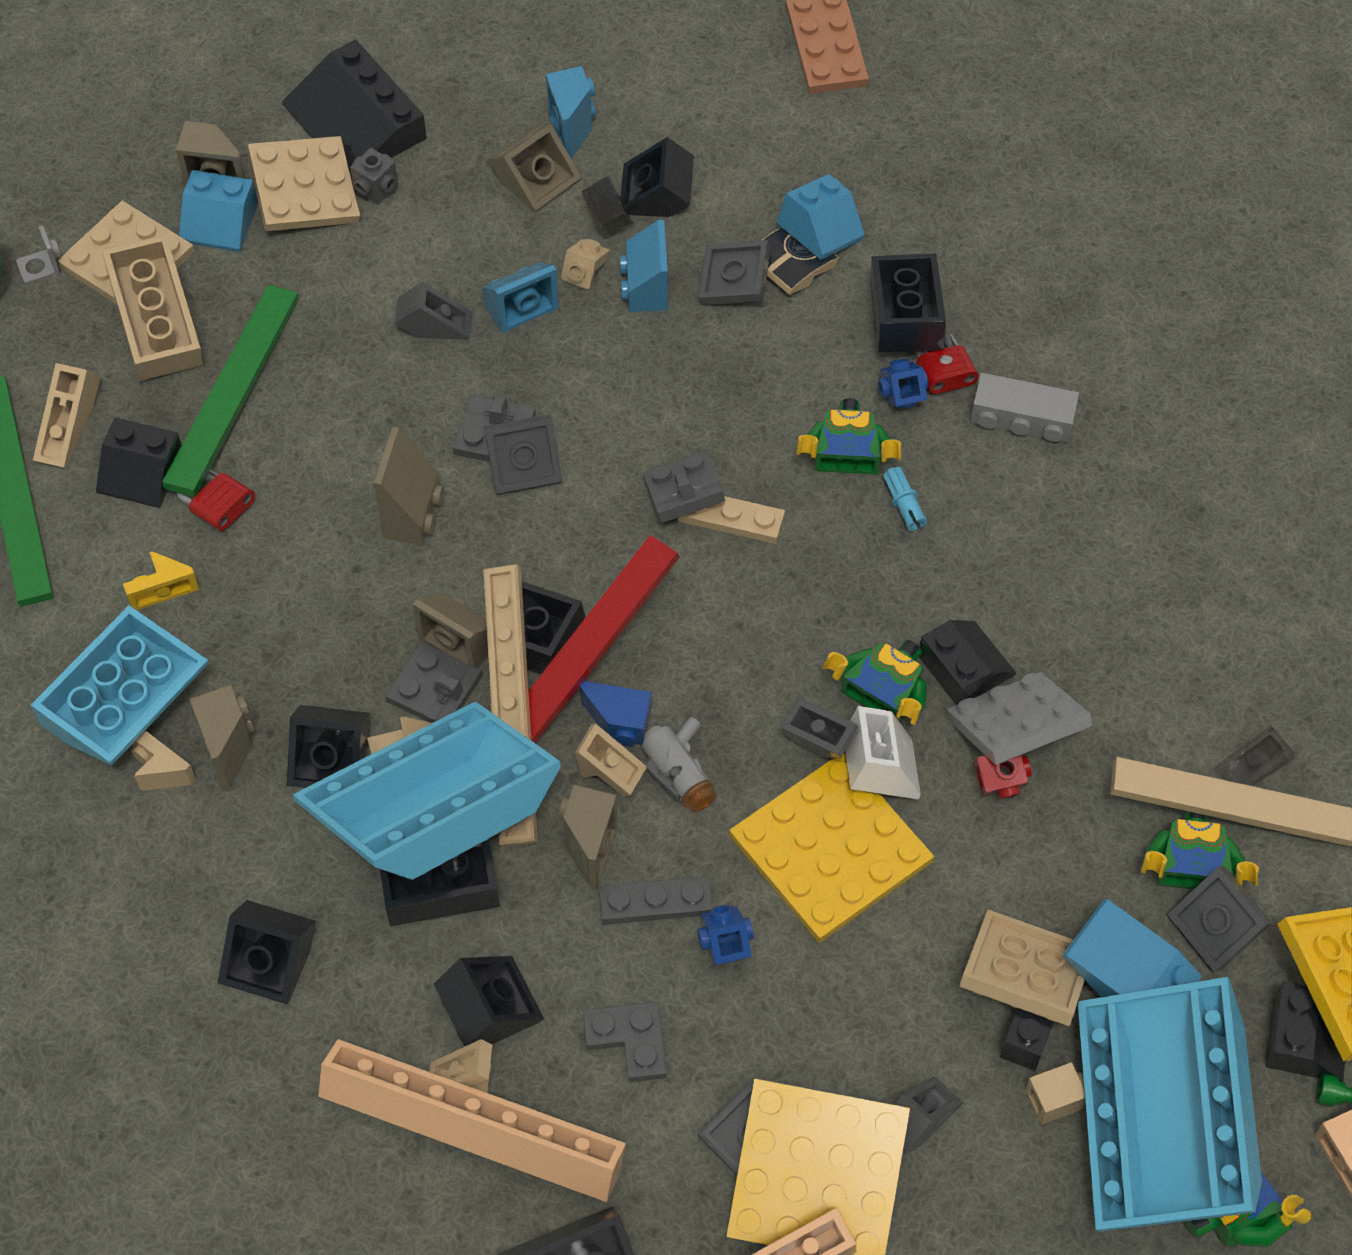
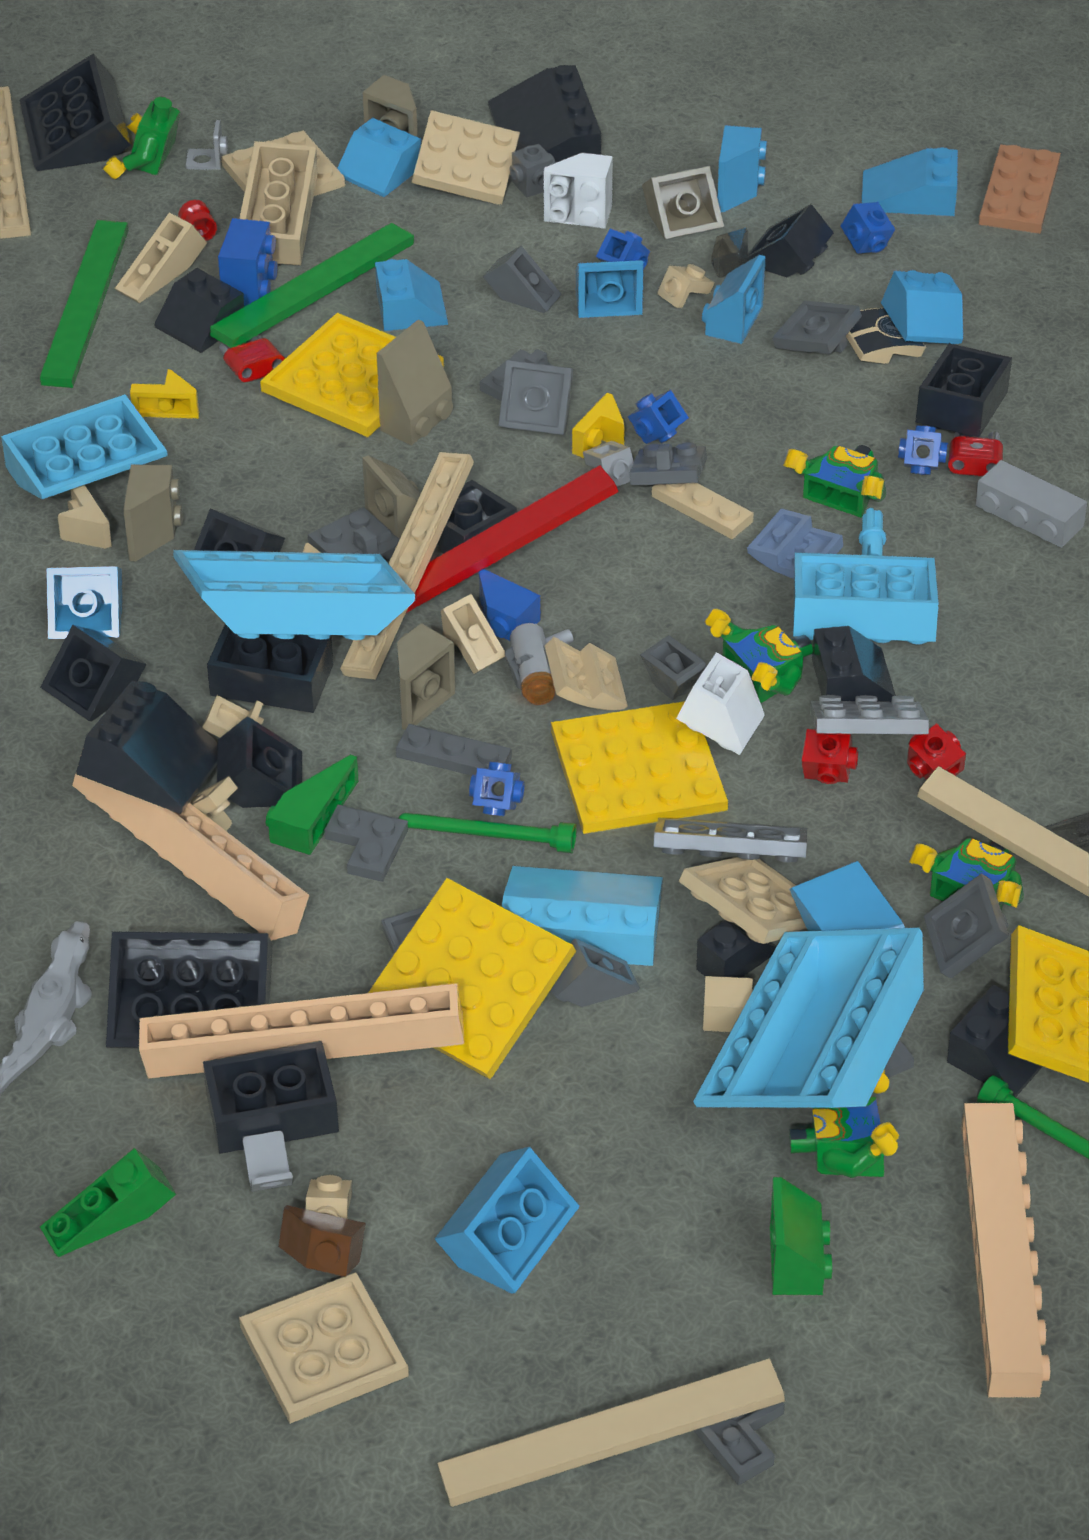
camera: 25 degrees right, 15 degrees down
(73, 348) = (199, 216): none -> red wheel
(161, 389) = (247, 258): none -> blue brick
(212, 866) = (85, 599): none -> slope
(319, 485) = (334, 374): none -> yellow plate
(332, 371) = (408, 295): none -> dark azure slope
(387, 1038) = (149, 749): none -> black slope
(432, 951) = (225, 715): none -> tan bracket
(437, 190) = (579, 190): none -> white slope
(504, 249) = (622, 248): none -> blue brick
(559, 1029) = (306, 809): none -> green slope
(597, 457) = (599, 424): none -> yellow slope
(627, 498) = (614, 459): none -> light grey bracket
(646, 434) = (657, 417): none -> blue brick
(722, 140) = (867, 227): none -> blue brick
(732, 71) = (914, 183): none -> dark azure slope
(734, 764) = (586, 675): none -> tan slope
(804, 961) = (559, 837): none -> green piece
(840, 534) = (788, 535): none -> sand blue slope
(873, 1037) = (598, 908): none -> medium azure slope
(937, 572) = (872, 594): none -> medium azure slope
(965, 904) = (717, 837): none -> plate
(1098, 740) = (935, 750): none -> red brick

